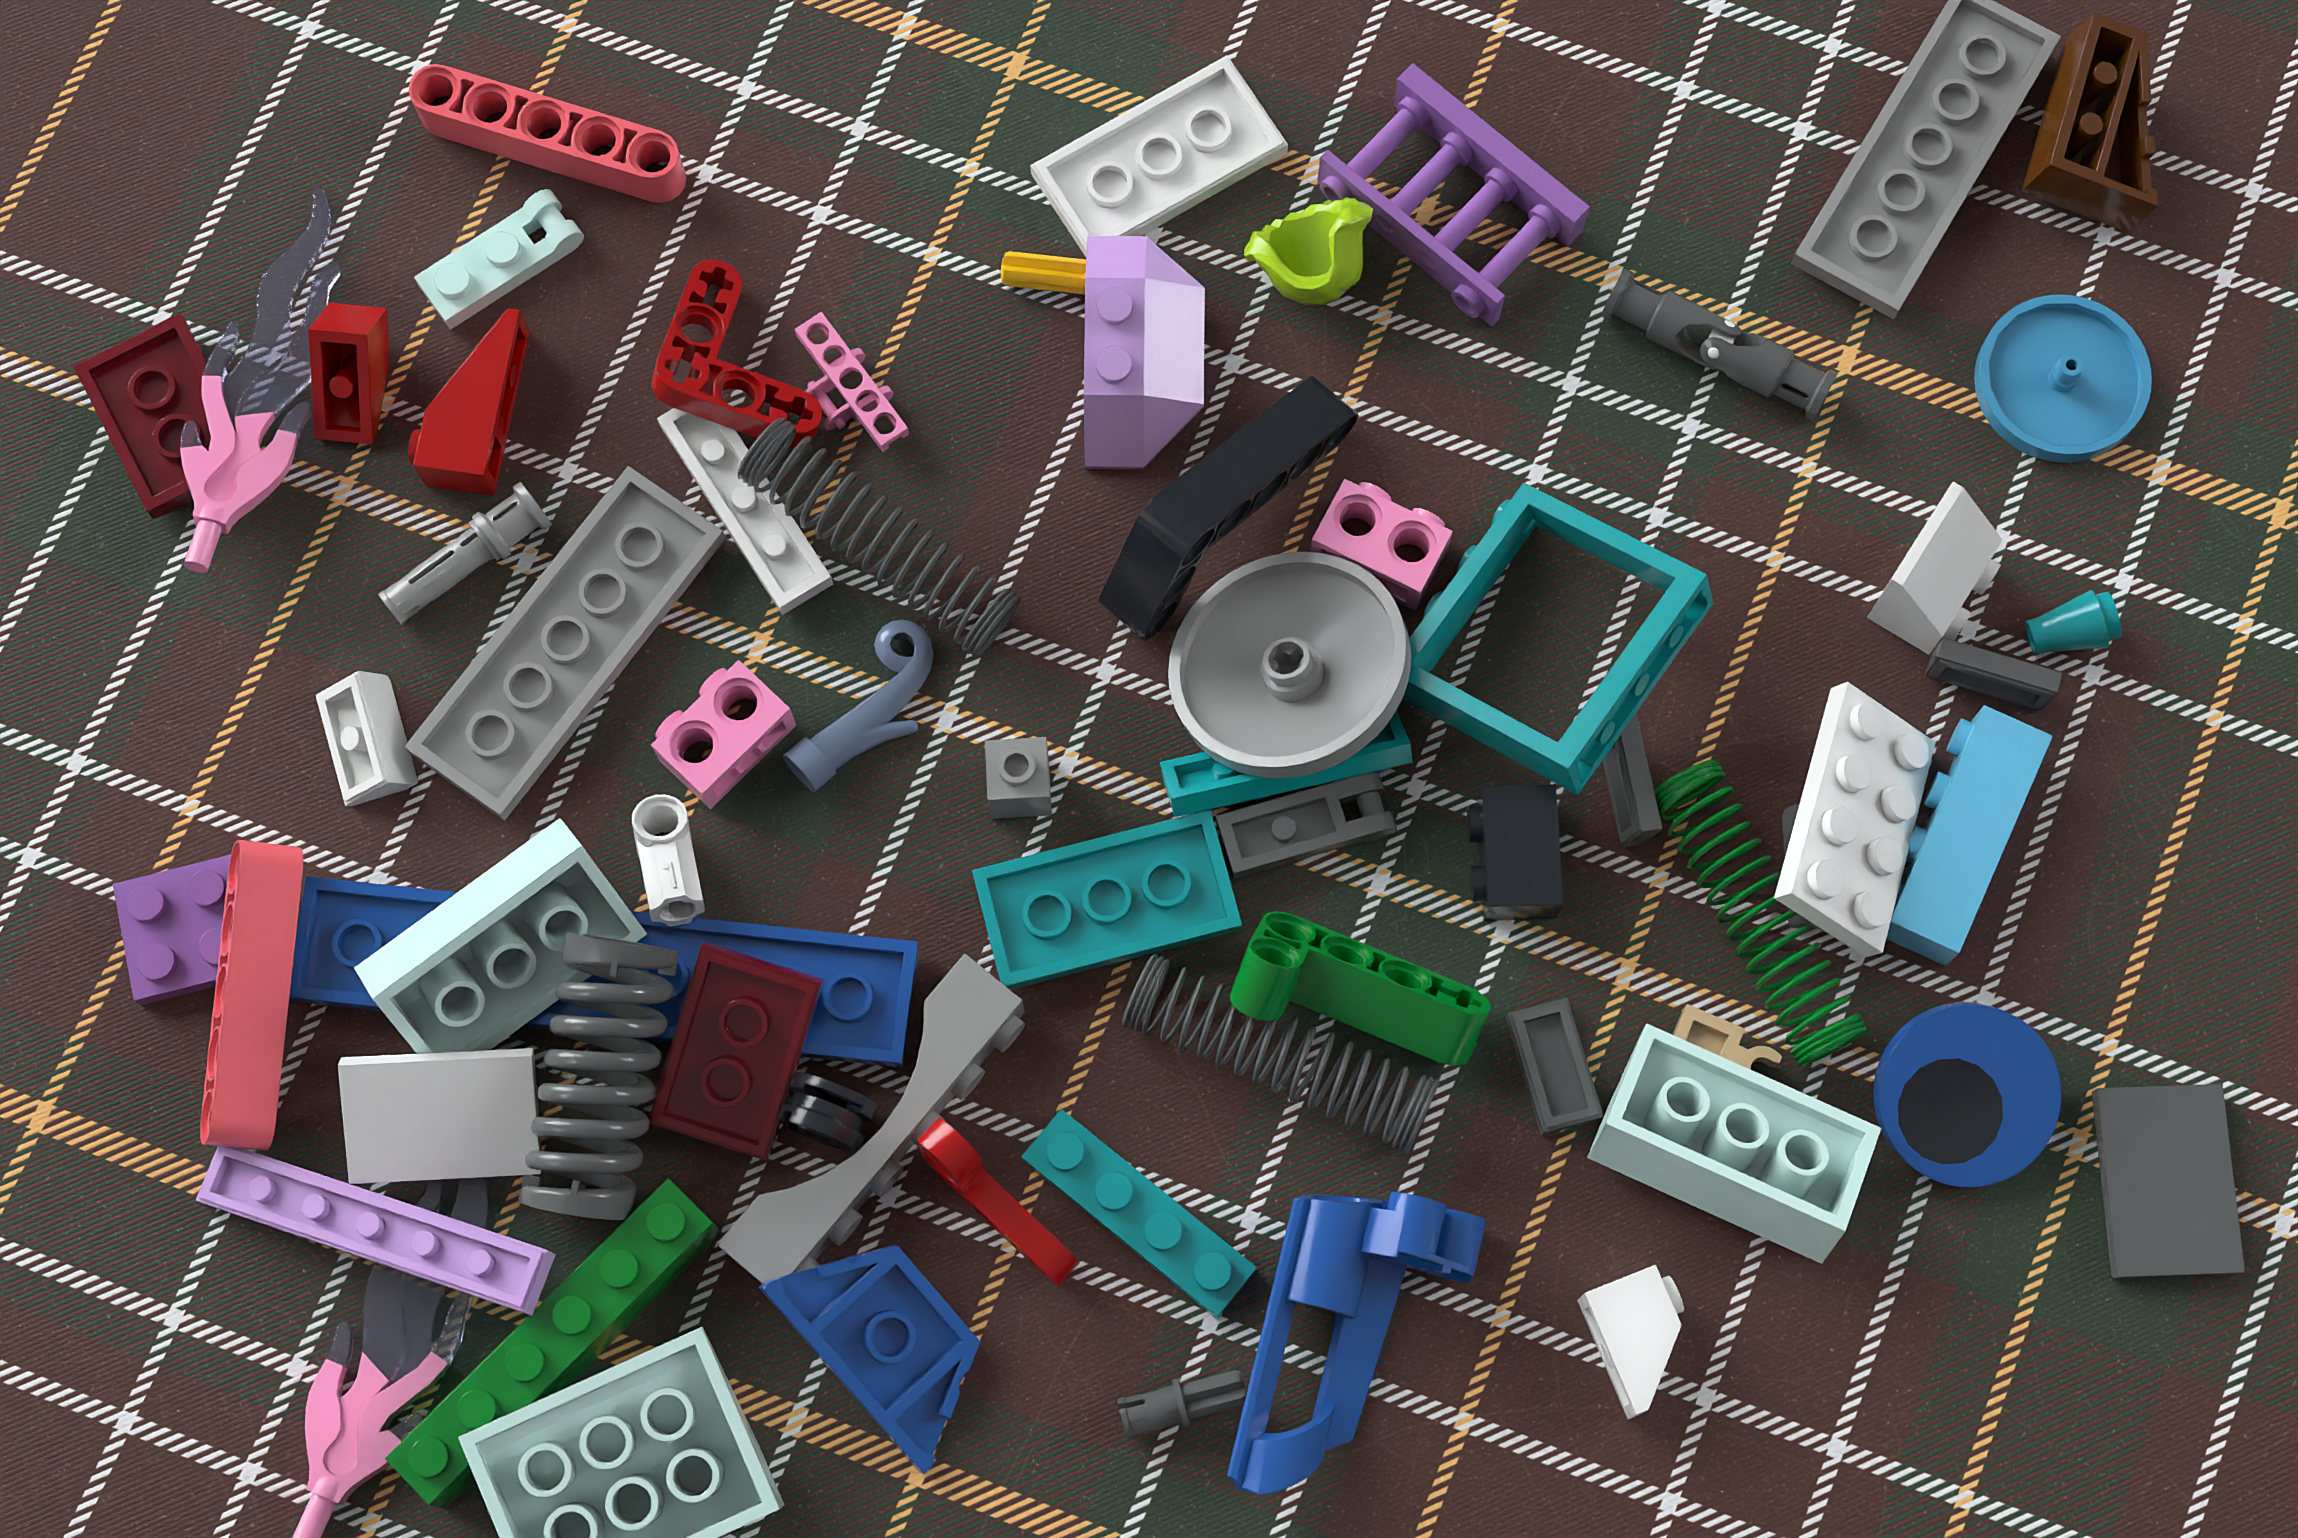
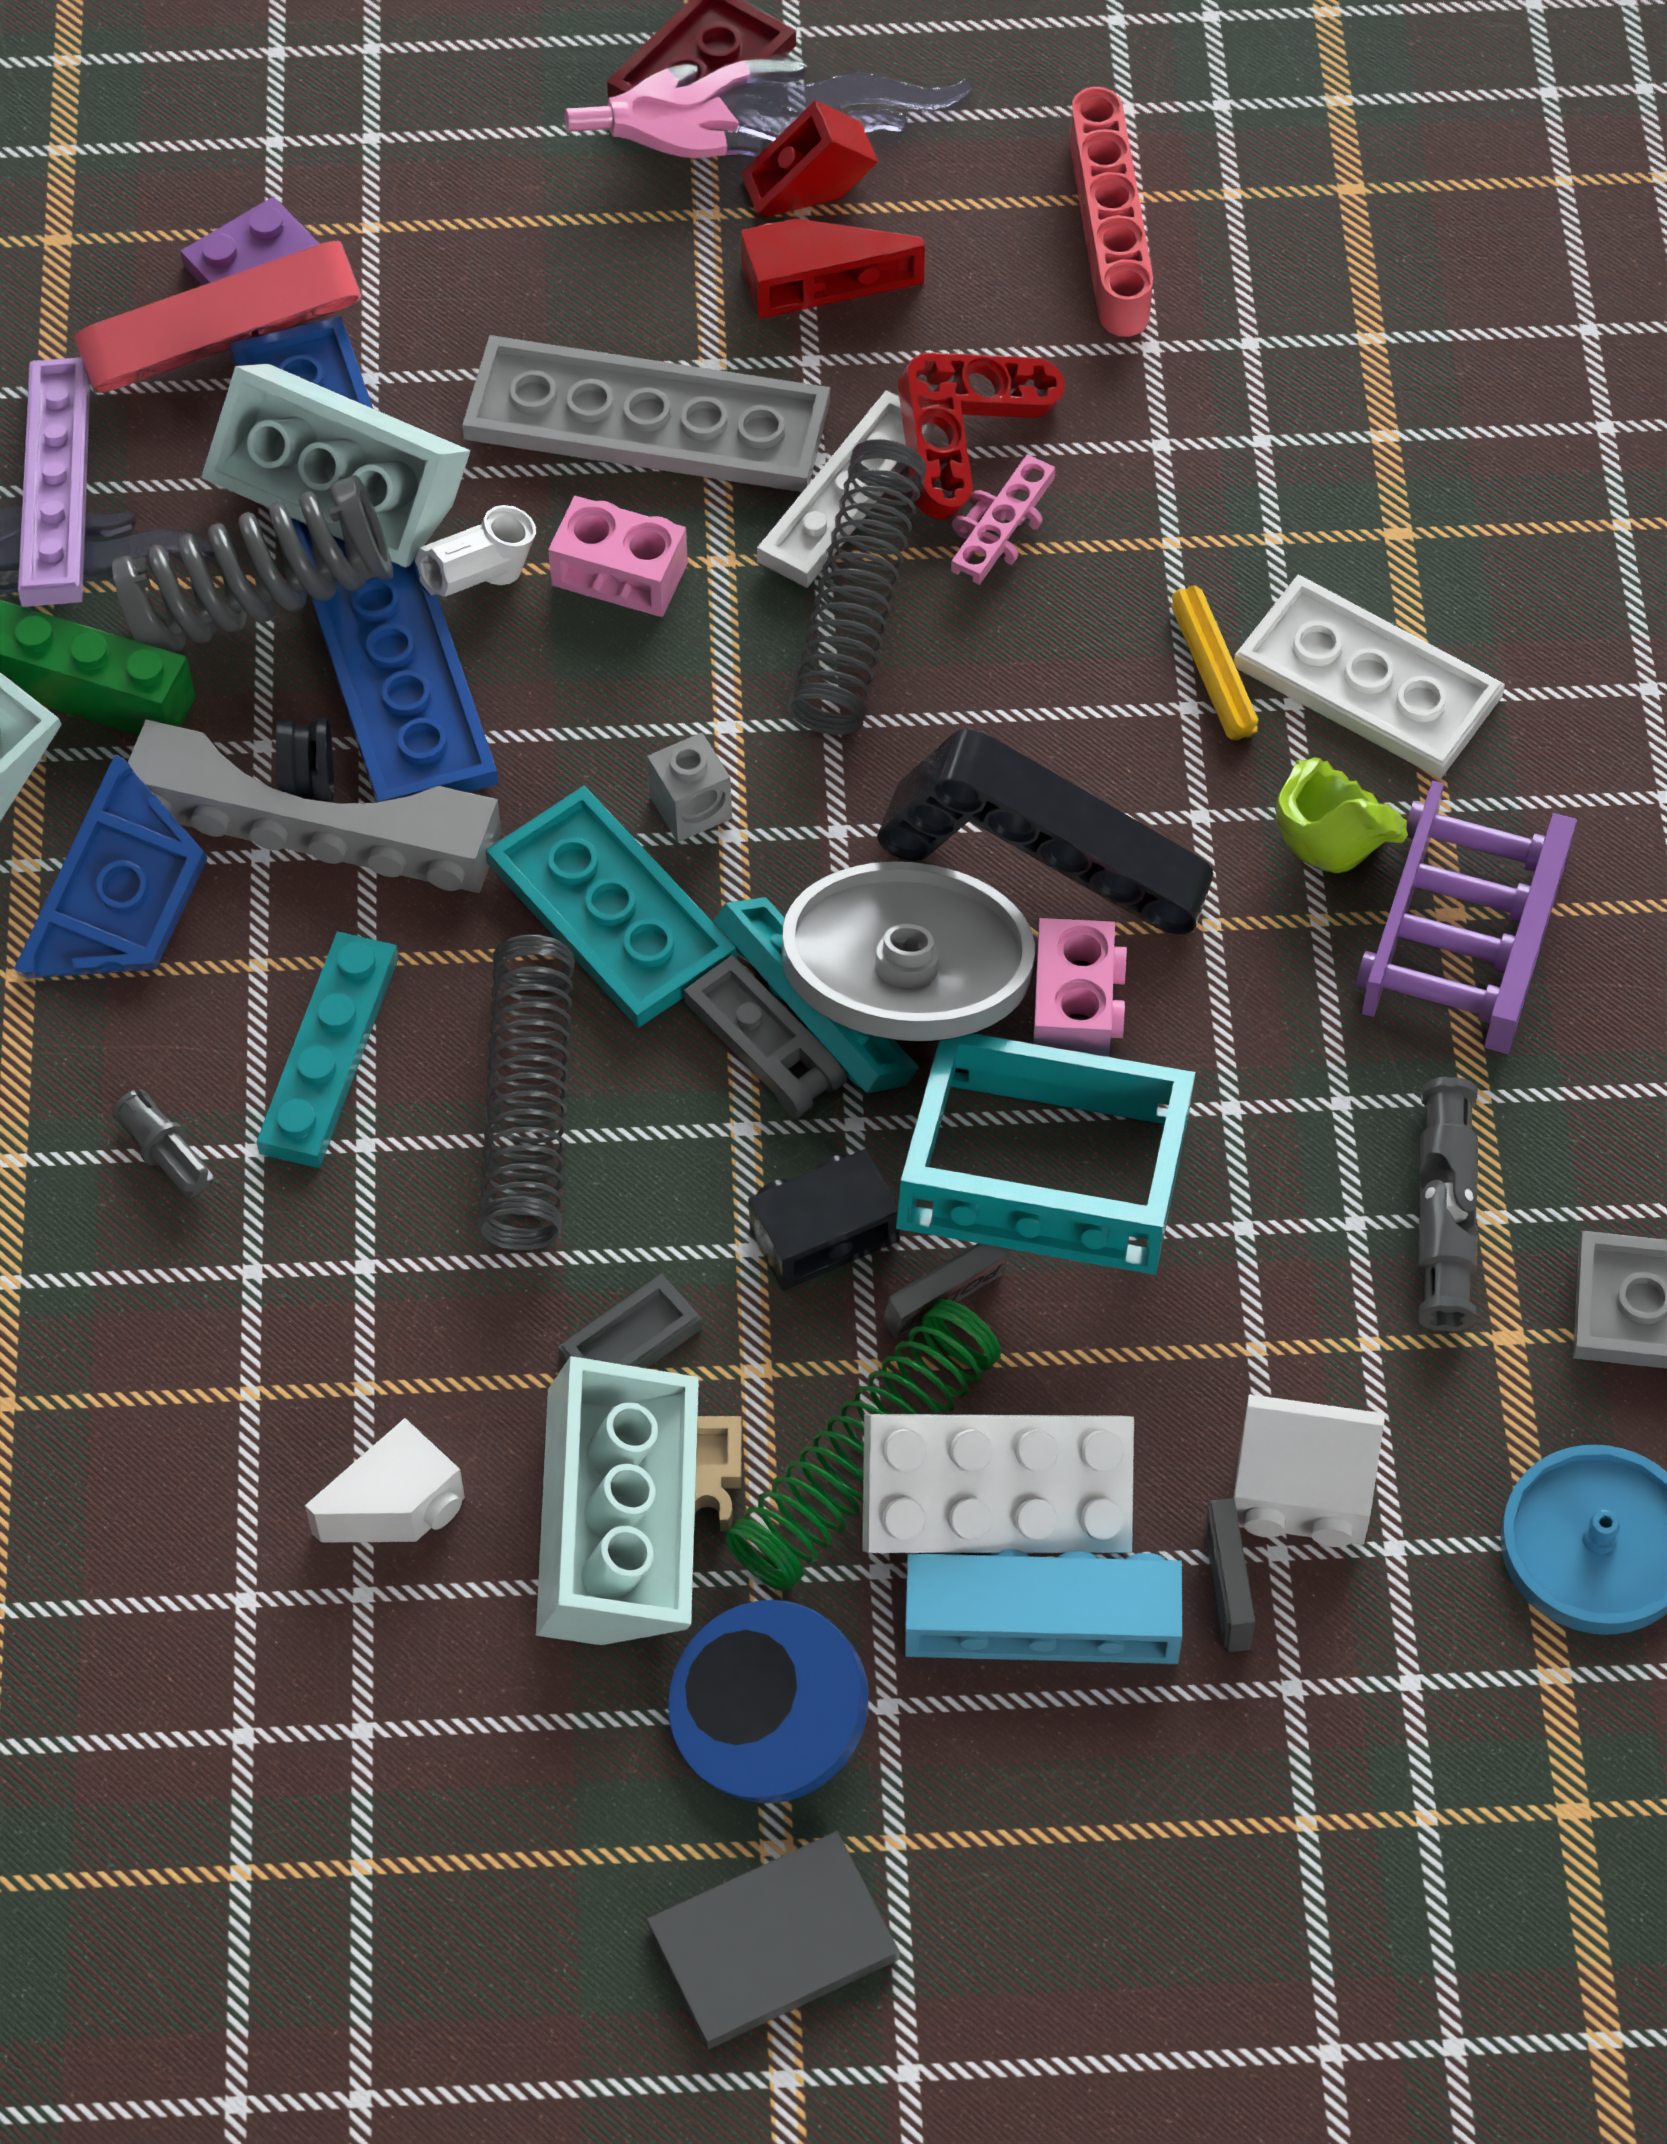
camera: 65 degrees right, 15 degrees down
(366, 737) = (500, 307): white slope -> none
(439, 1115) = (169, 475): white tile -> none
(487, 538) = (710, 319): light grey pin -> none
(499, 259) = (976, 230): light aqua plate -> none
(735, 1050) = (331, 667): dark red tile -> none
(867, 724) = (685, 661): sand blue plant -> none
(965, 1173) = (299, 883): red beam -> none
(1138, 351) = (1153, 711): lavender wedge -> none
(1350, 1261) = (352, 1222): blue panel -> none
(1358, 987) = (621, 1118): green beam -> none
(2076, 625) = (1331, 1642): teal cone -> none

